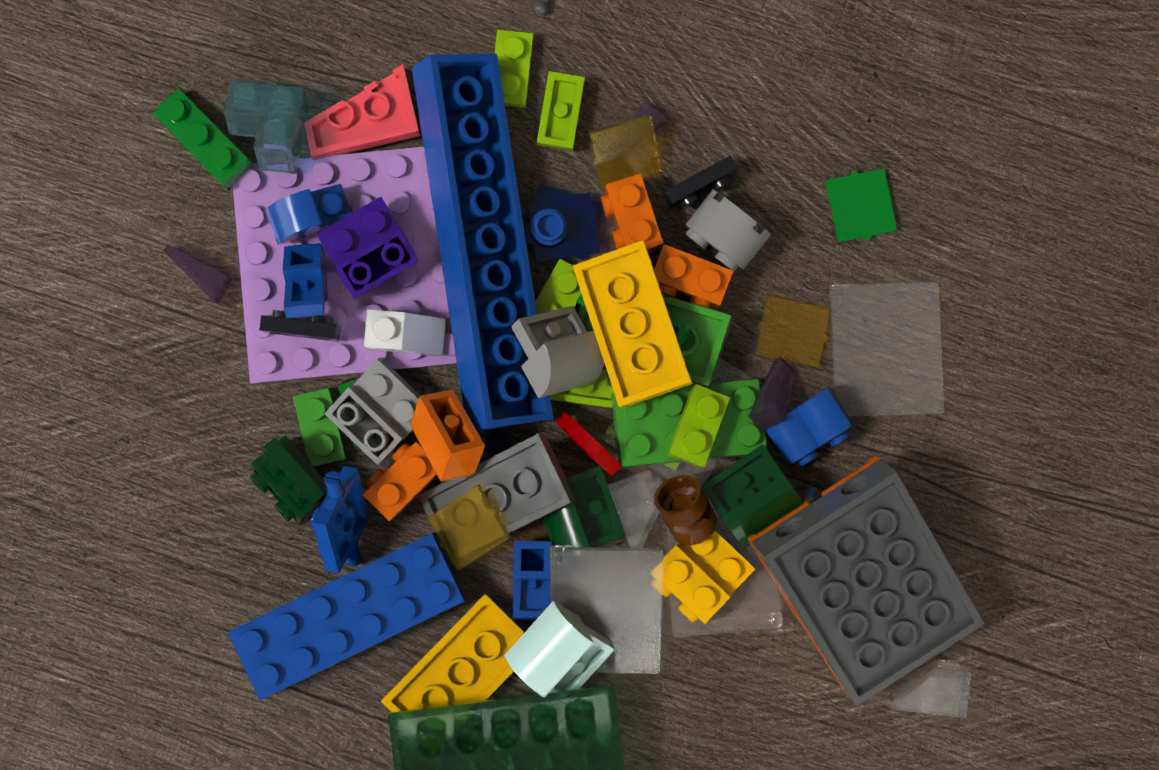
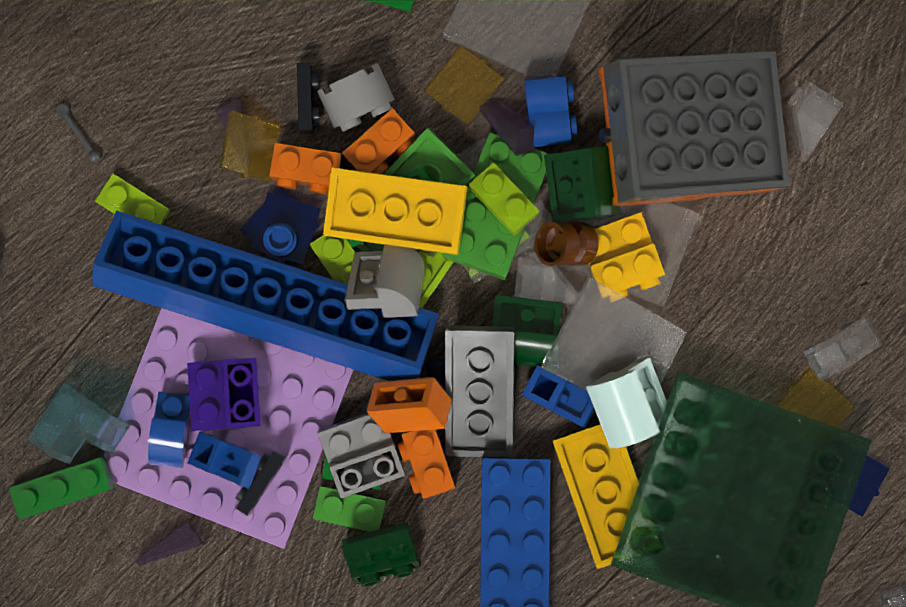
camera: 65 degrees left, 0 degrees up
(341, 519) = (435, 526): blue plate -> none
(369, 119) = (115, 345): coral wing -> none
(404, 333) = (308, 399): white slope -> none
(468, 527) = (492, 426): clear yellow piece -> none
(560, 111) = (188, 182): lime plate -> none
(588, 443) = (472, 295): red tile -> none

